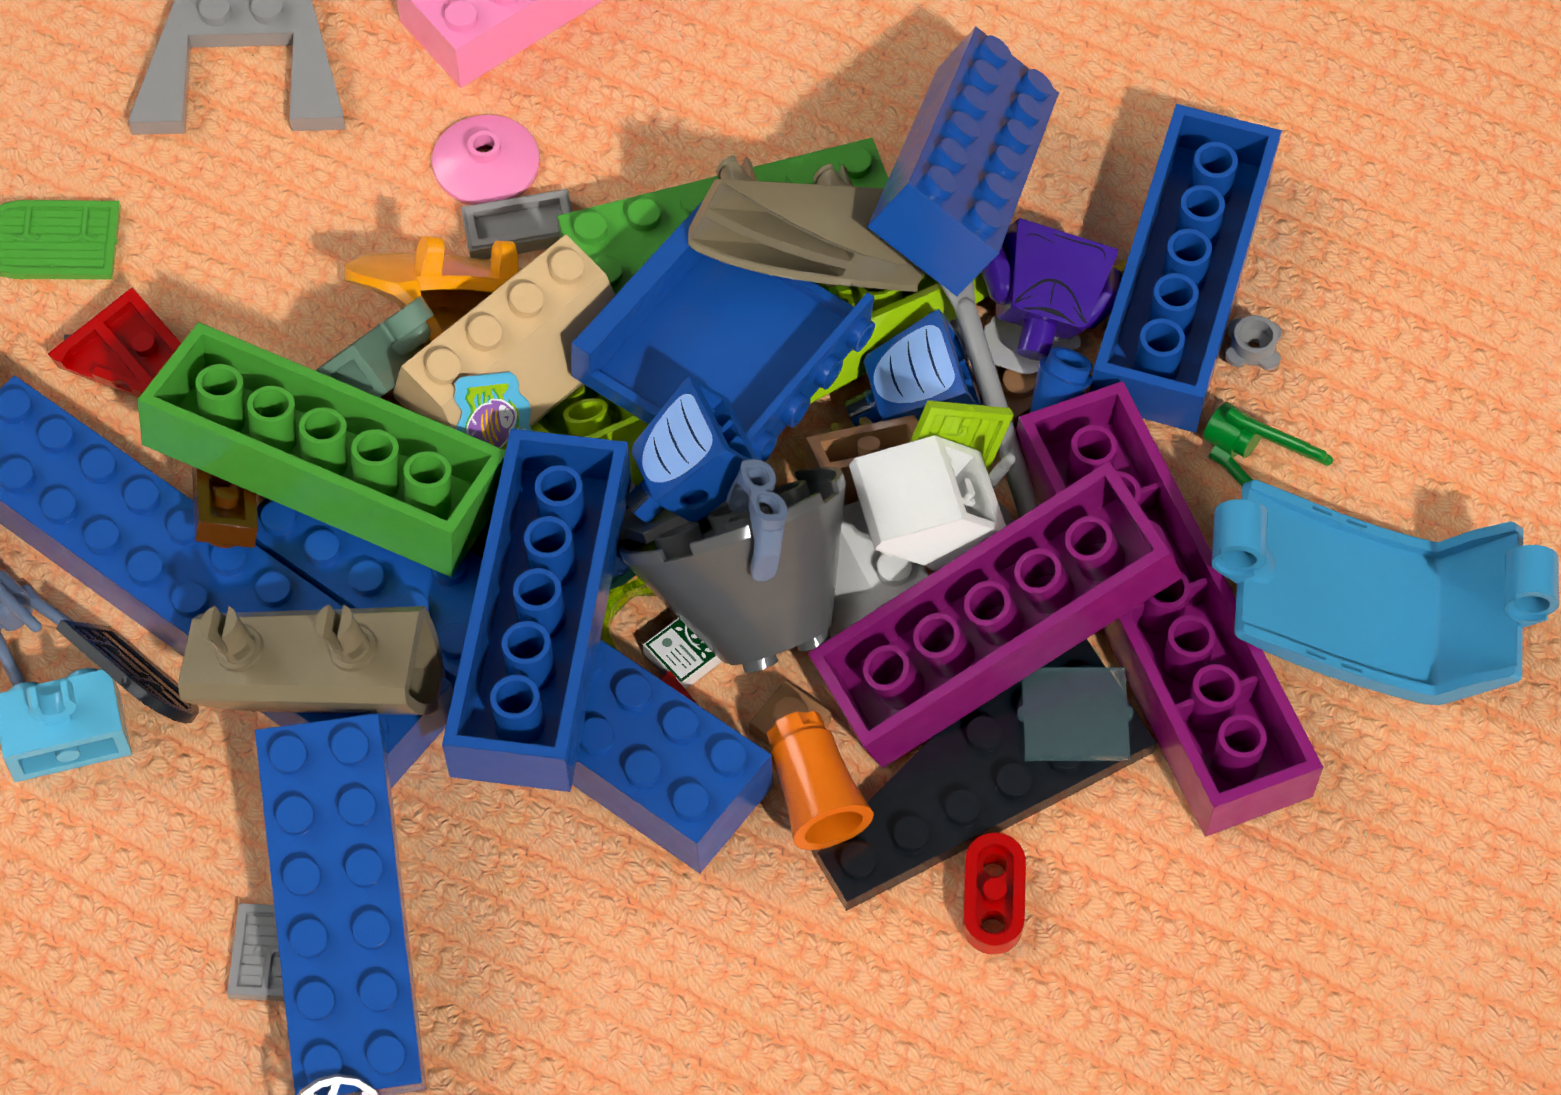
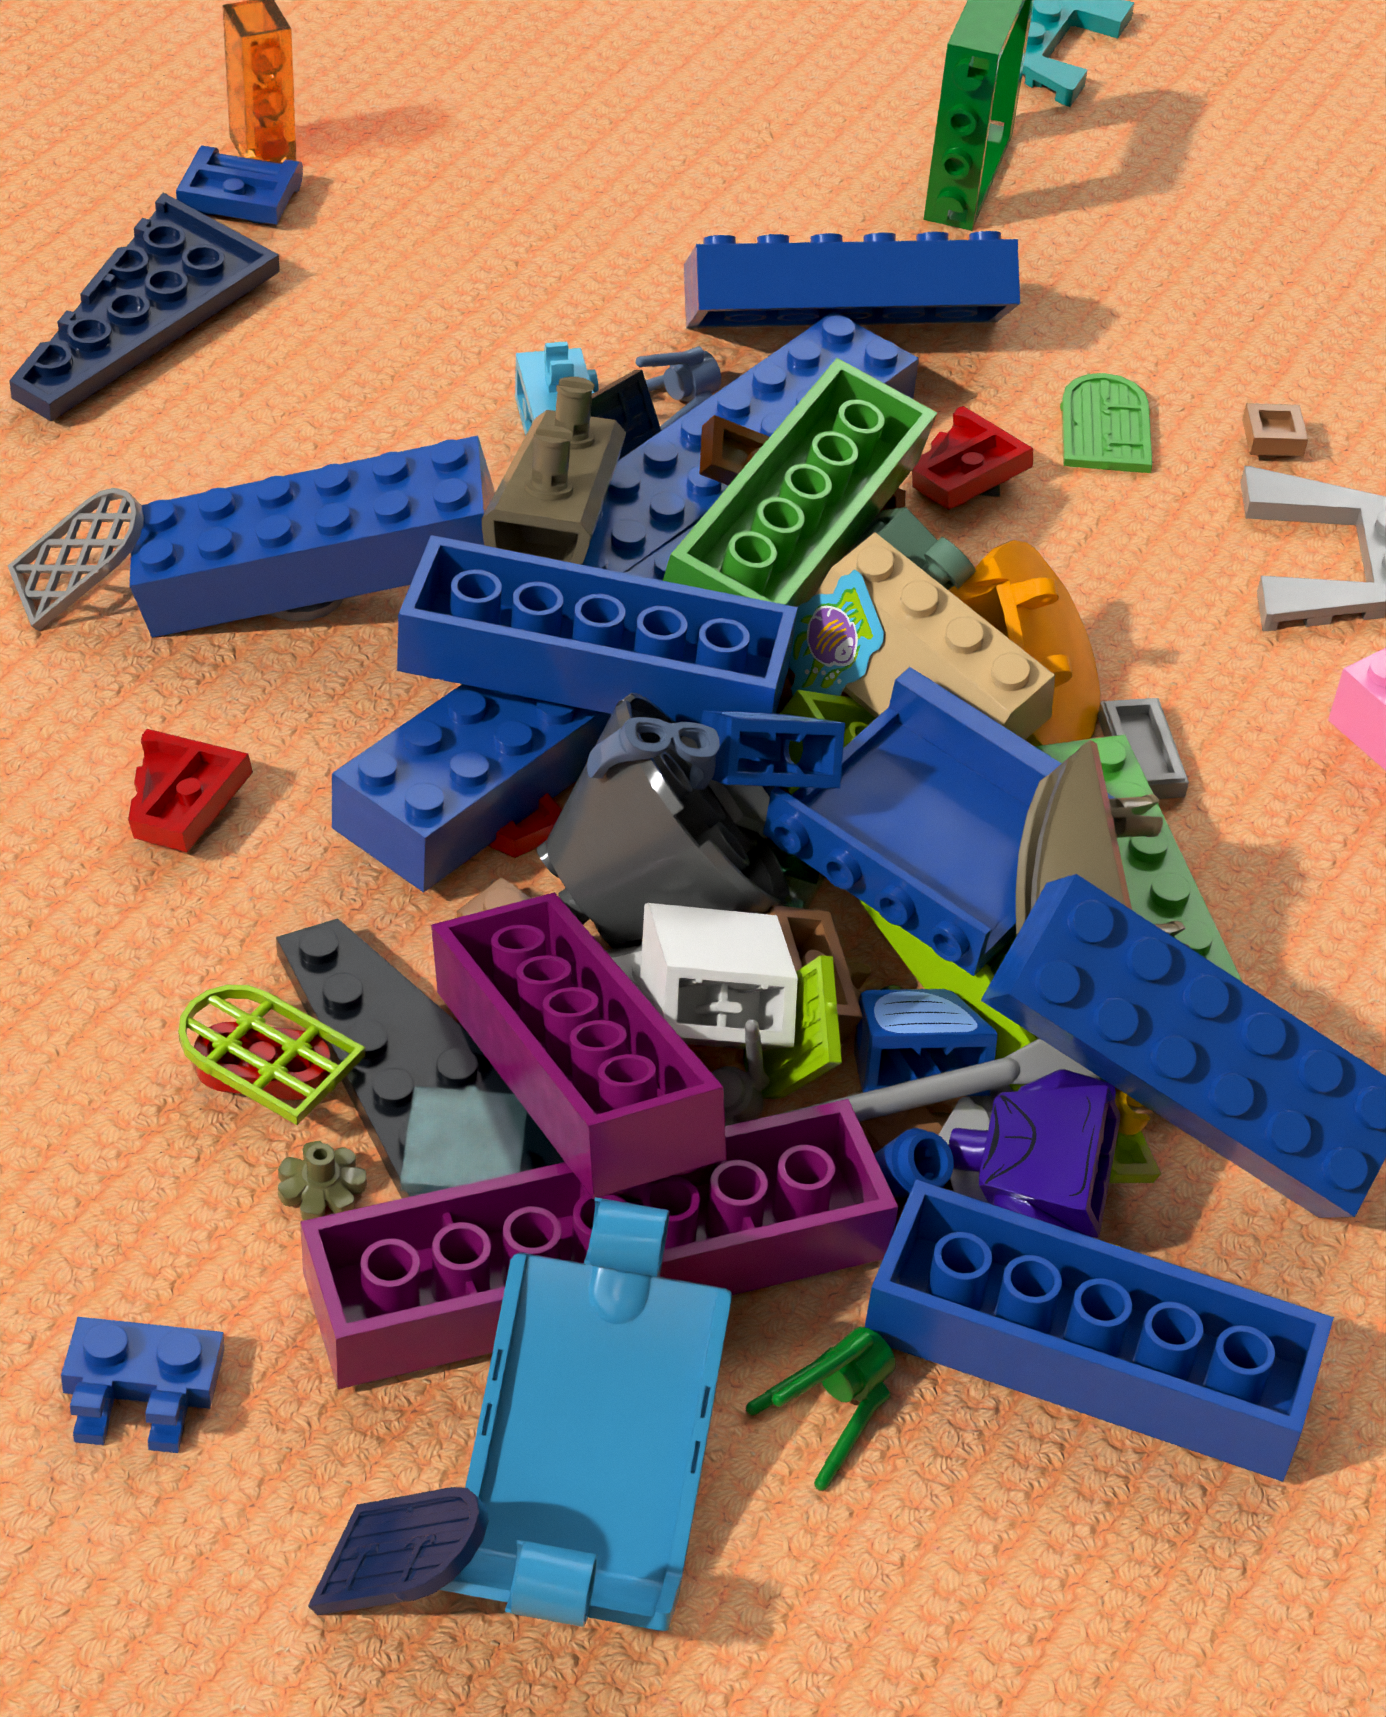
camera: 90 degrees right, 15 degrees down
(71, 94) = (1275, 429): none -> medium nougat plate
(490, 175) = (1230, 733): bright pink dish -> none
(663, 1014) = (182, 788): none -> red wing
(815, 782) = (403, 892): orange plant -> none
(991, 860) = (267, 1070): none -> lime window
(1106, 836) = (321, 1180): none -> olive plant
(1256, 330) = (997, 1398): light grey plate -> none
(1317, 943) = (139, 1363): none -> blue plate
(1476, 714) = (401, 1549): none -> dark blue window

